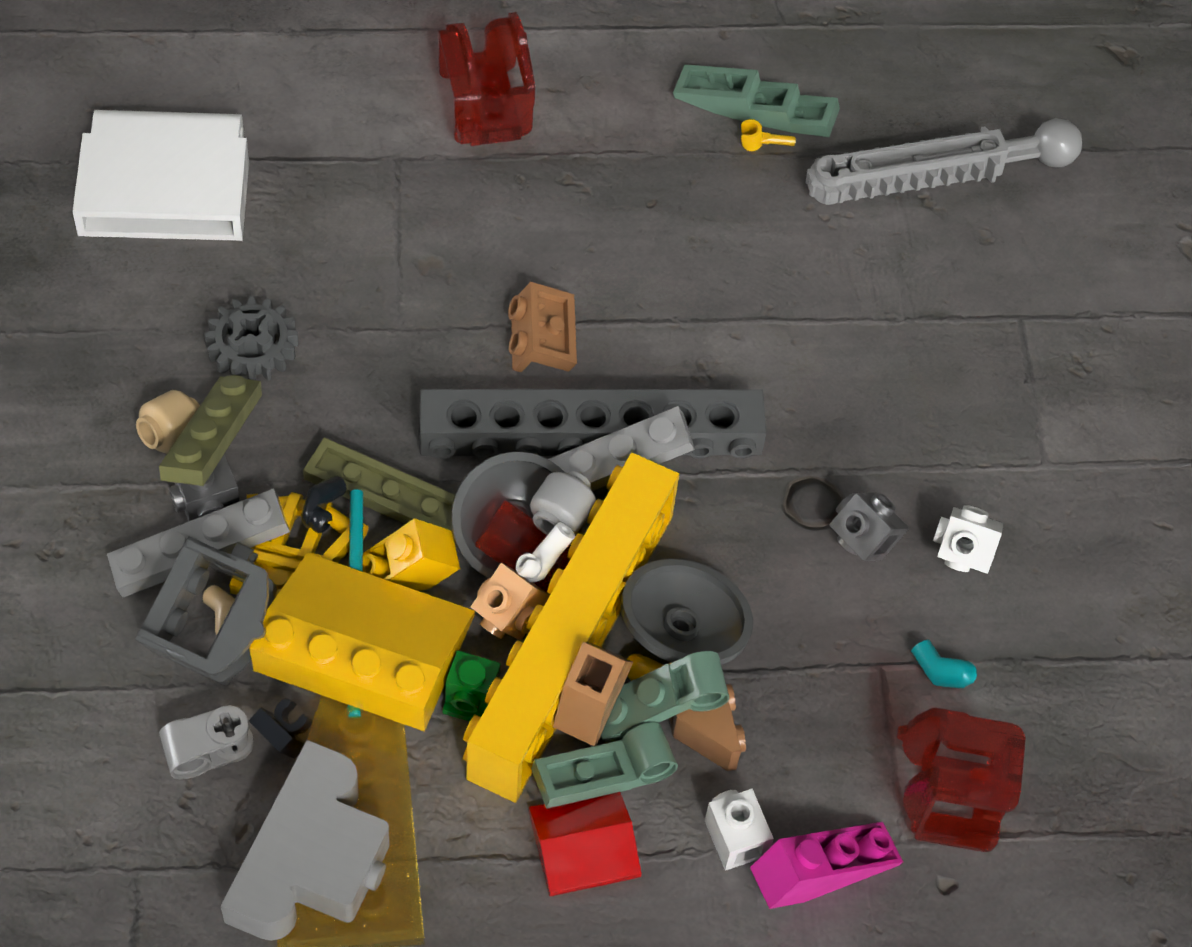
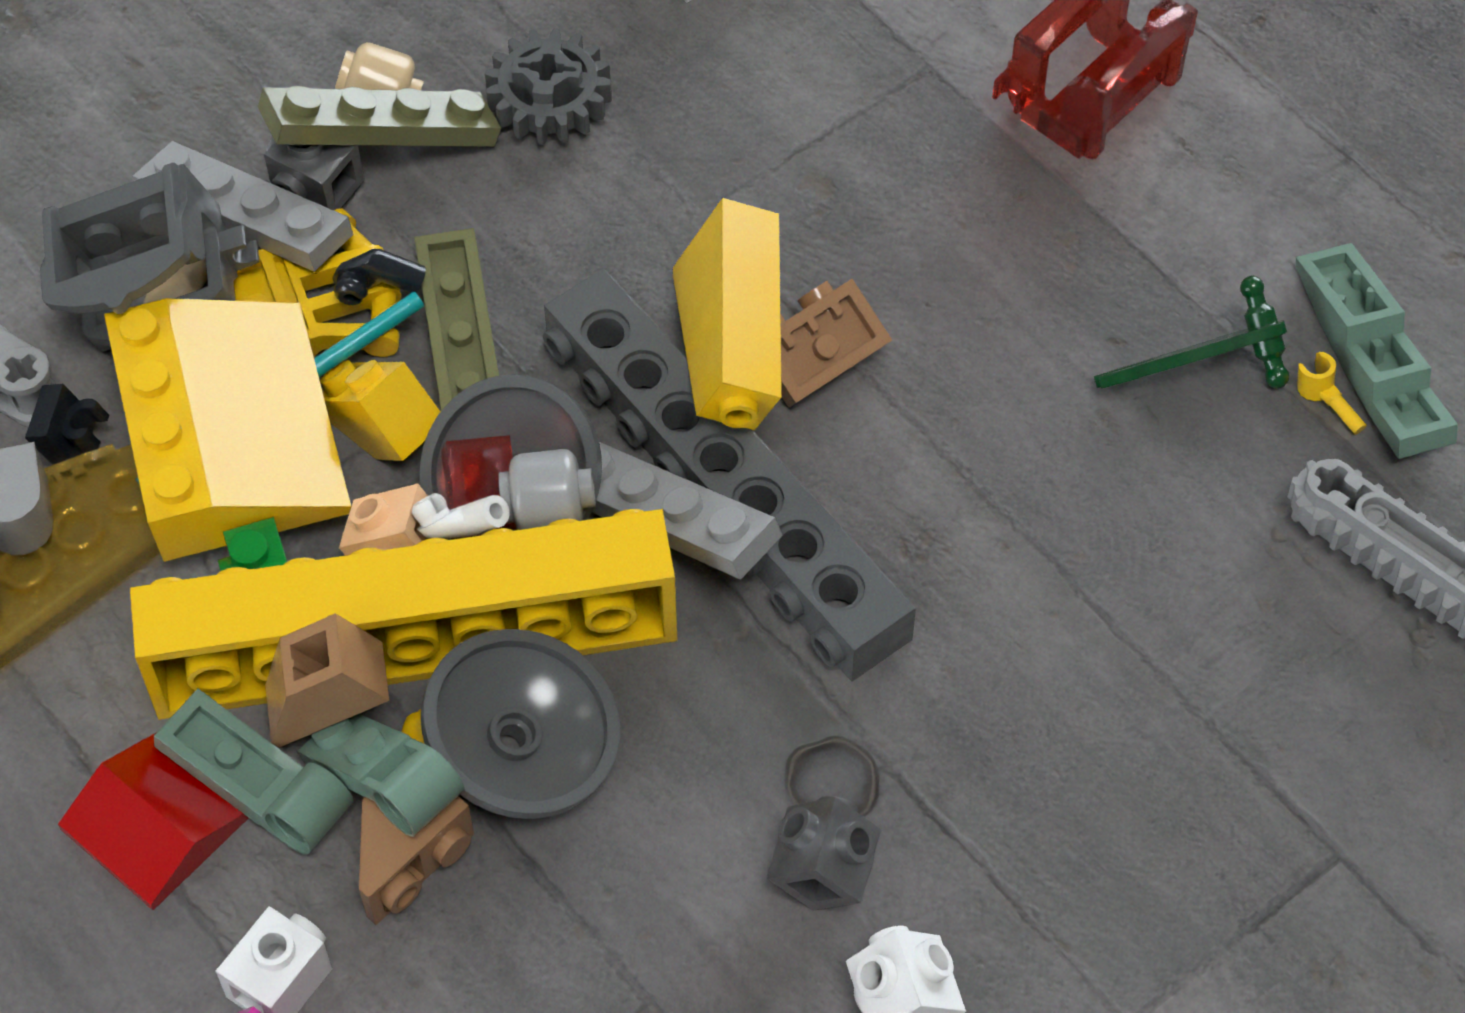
camera: 60 degrees right, 0 degrees up
(515, 347) = (732, 314): none -> yellow slope
(702, 159) = (1263, 333): none -> dark green piece

